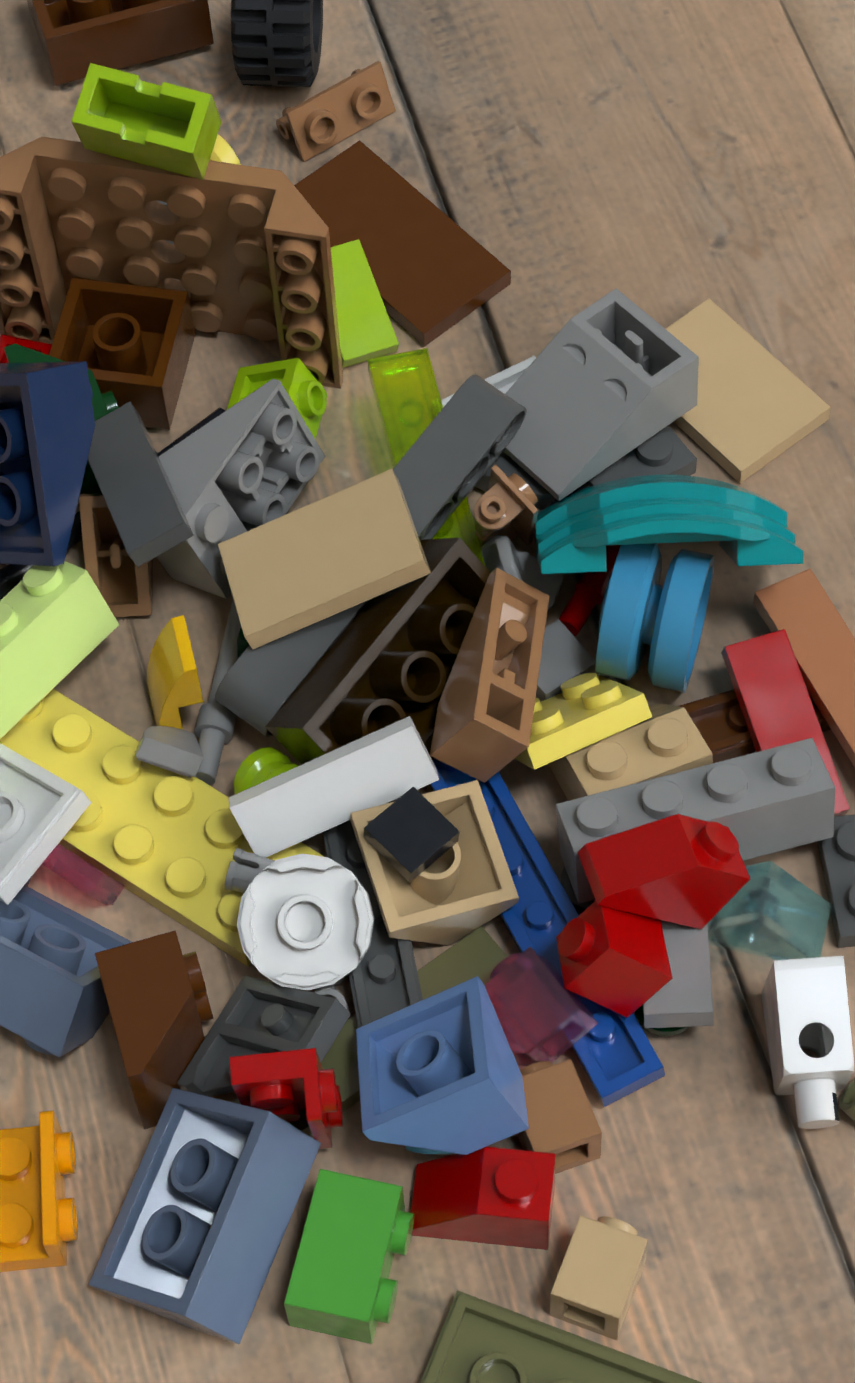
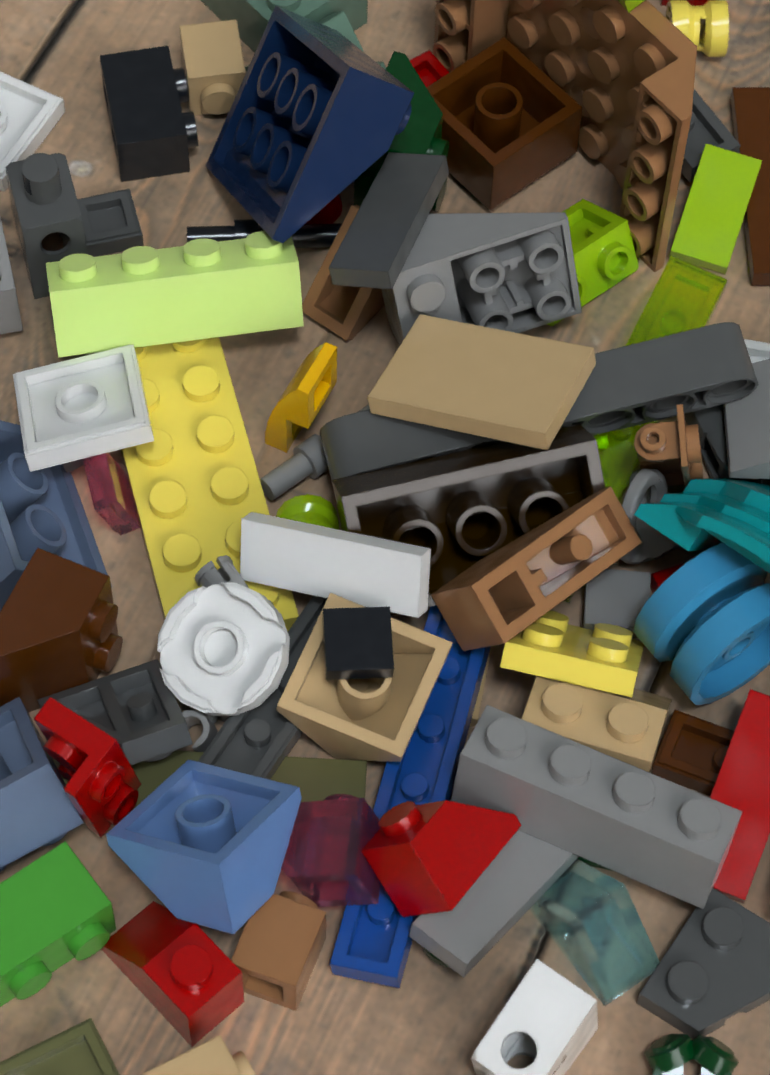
camera: 35 degrees right, 0 degrees up
(170, 749) = (256, 446): light grey tile -> none
(667, 870) = (522, 822): red slope -> none

